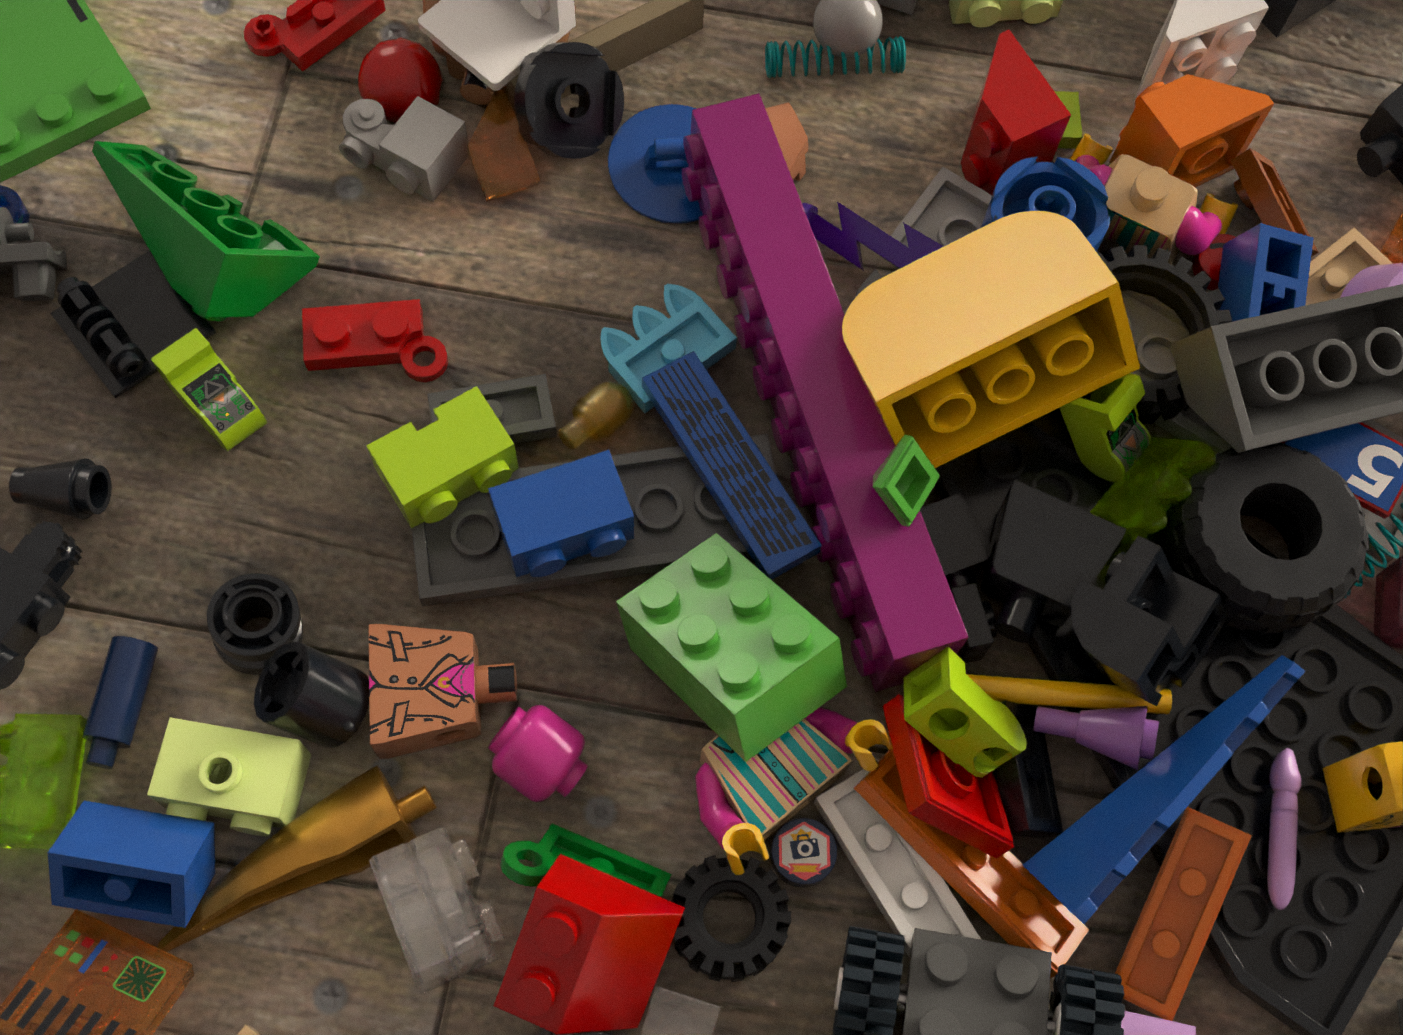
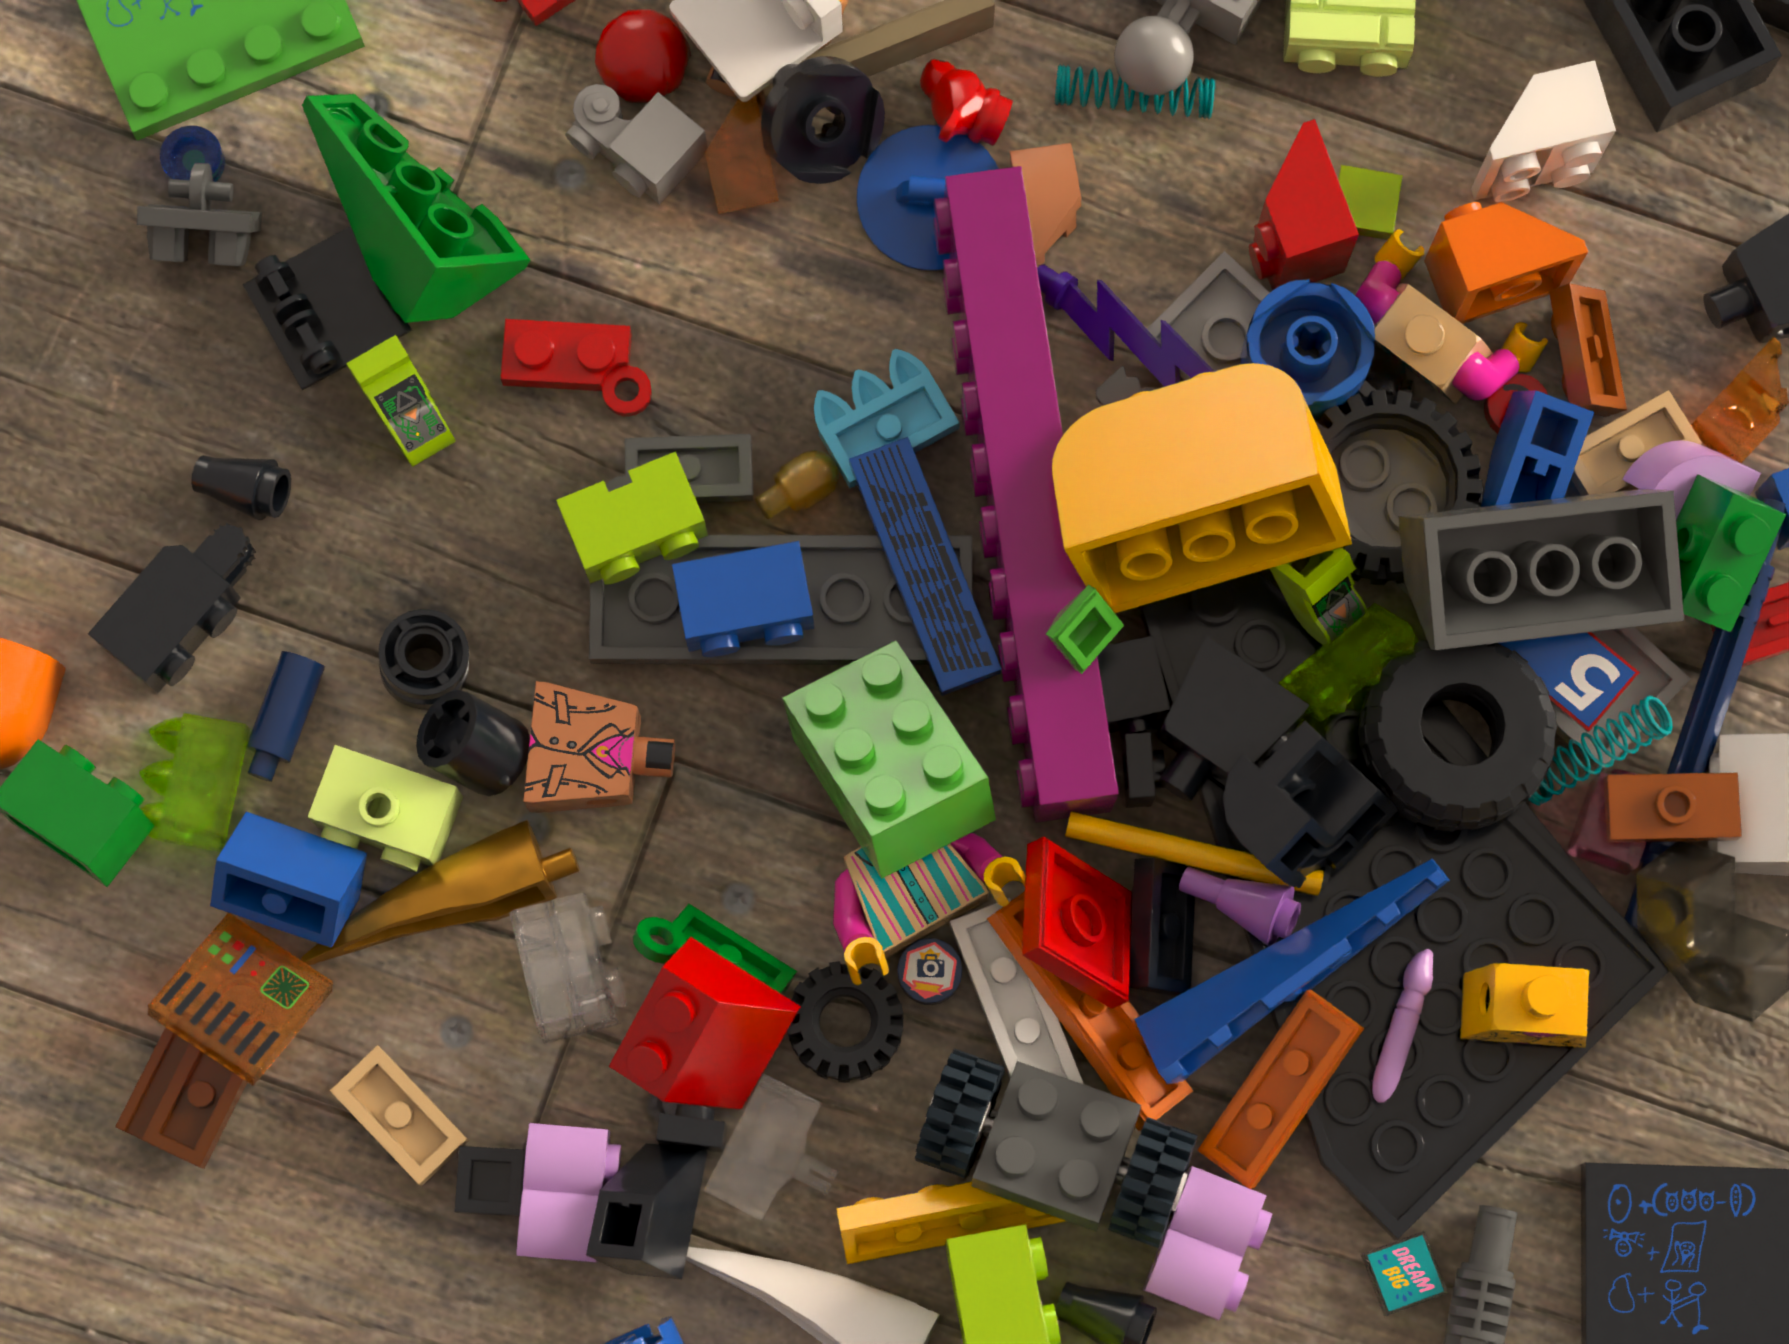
camera: 15 degrees right, 10 degrees up
(538, 753) = (685, 833): dark pink head -> none
(689, 79) = (963, 103): none -> red animal
(960, 715) = (1099, 867): lime leg -> none

